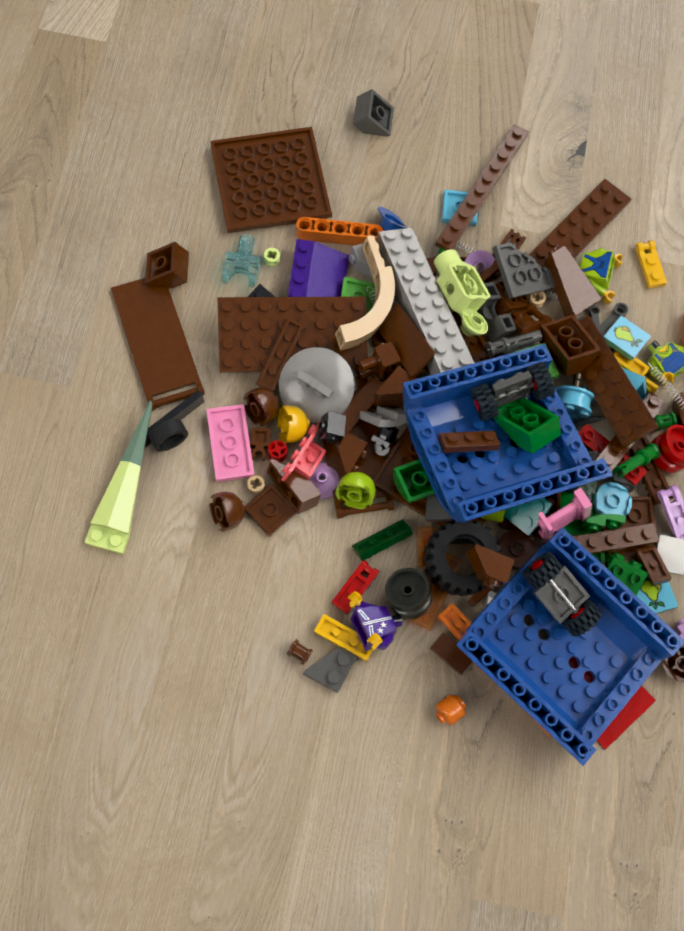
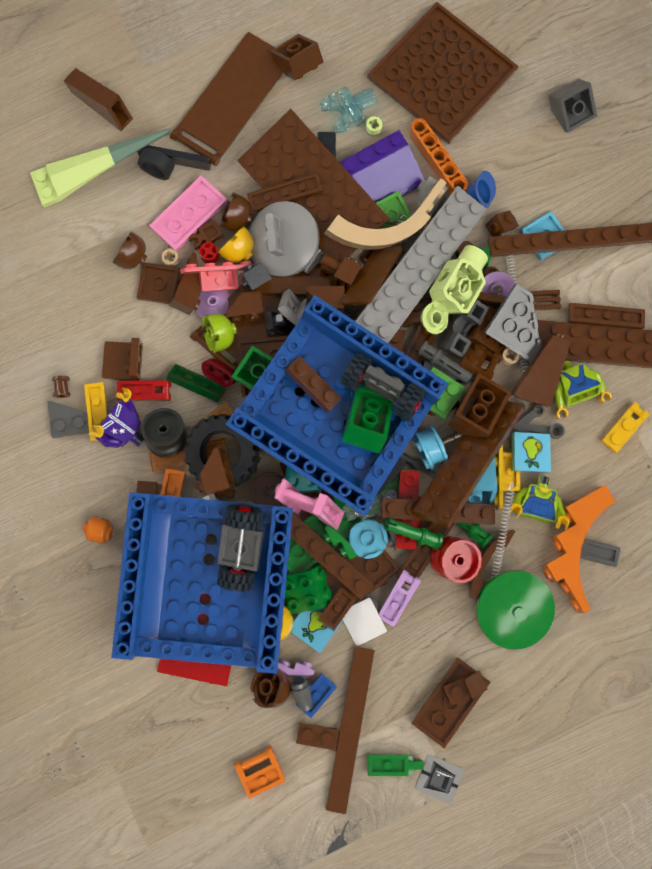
camera: 55 degrees right, 10 degrees up
(68, 438) = (99, 98): none -> reddish brown slope
(316, 584) = (122, 360): none -> reddish brown bracket
(387, 515) = (221, 374): none -> dark red plate
(428, 229) = (501, 223): none -> reddish brown bracket
(556, 213) = (606, 315): none -> reddish brown gear

